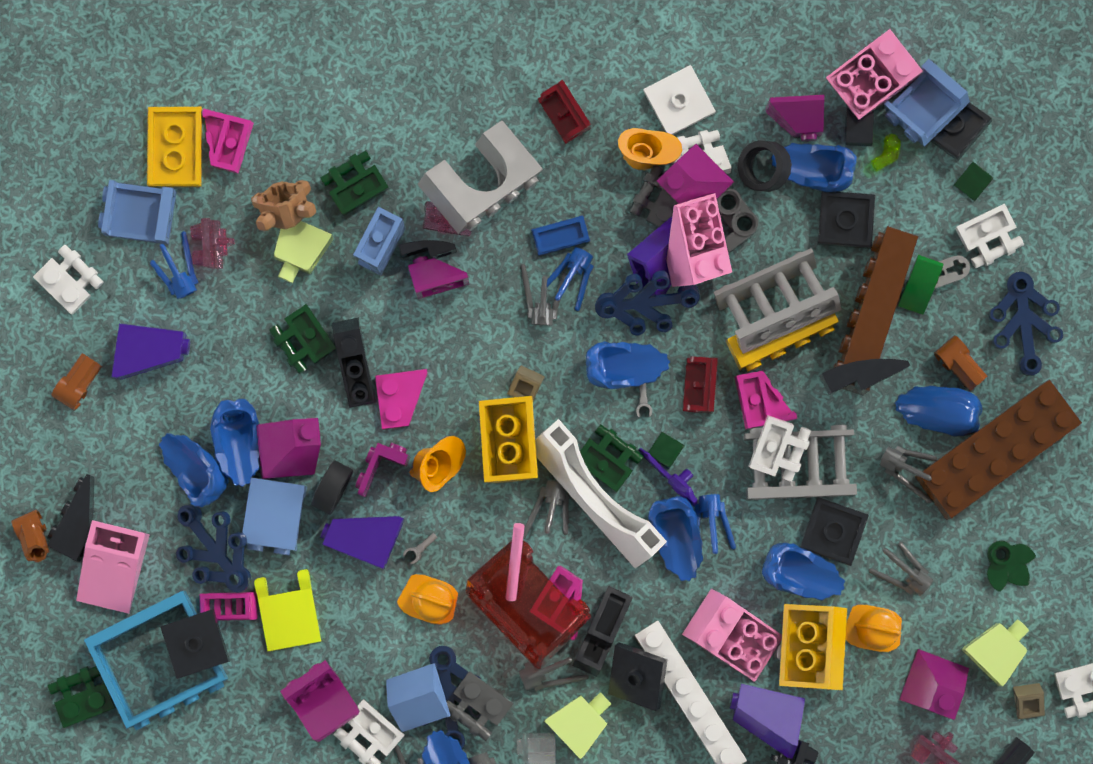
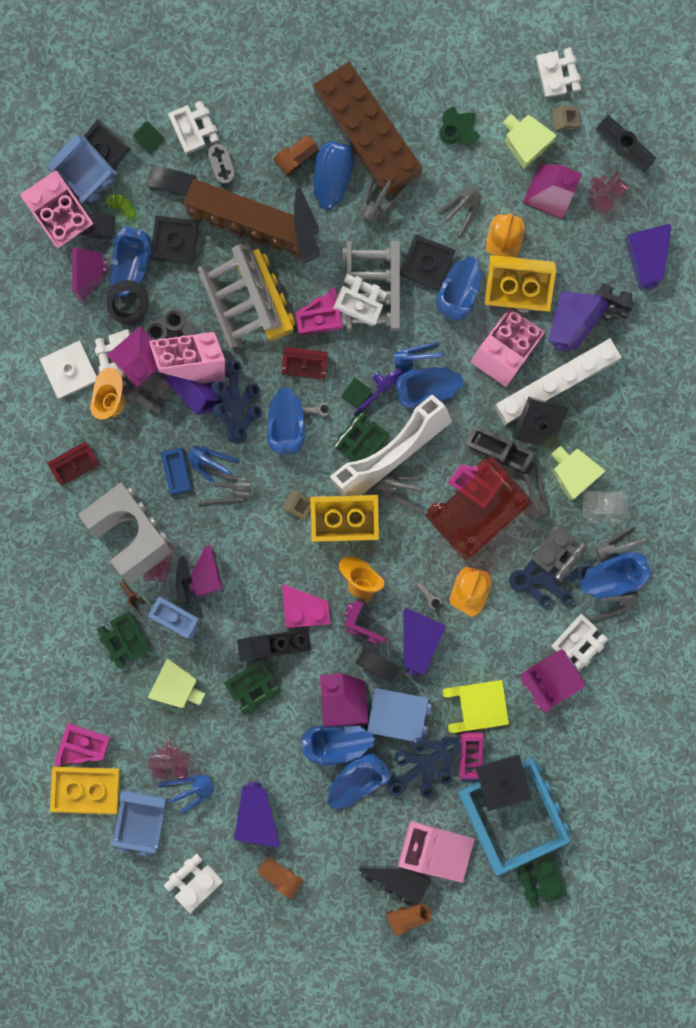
camera: 90 degrees left, 0 degrees up
(283, 205) = (140, 698): medium nougat piece -> none
(405, 191) = (132, 597): none -> reddish brown hand
(416, 698) = (551, 602): medium blue slope -> none
(515, 560) = (444, 516): bright pink bar -> none
(920, 210) = (169, 180): none -> black slope
(920, 284) = (230, 180): green slope -> none
(1025, 318) = (262, 103): dark blue plant -> none

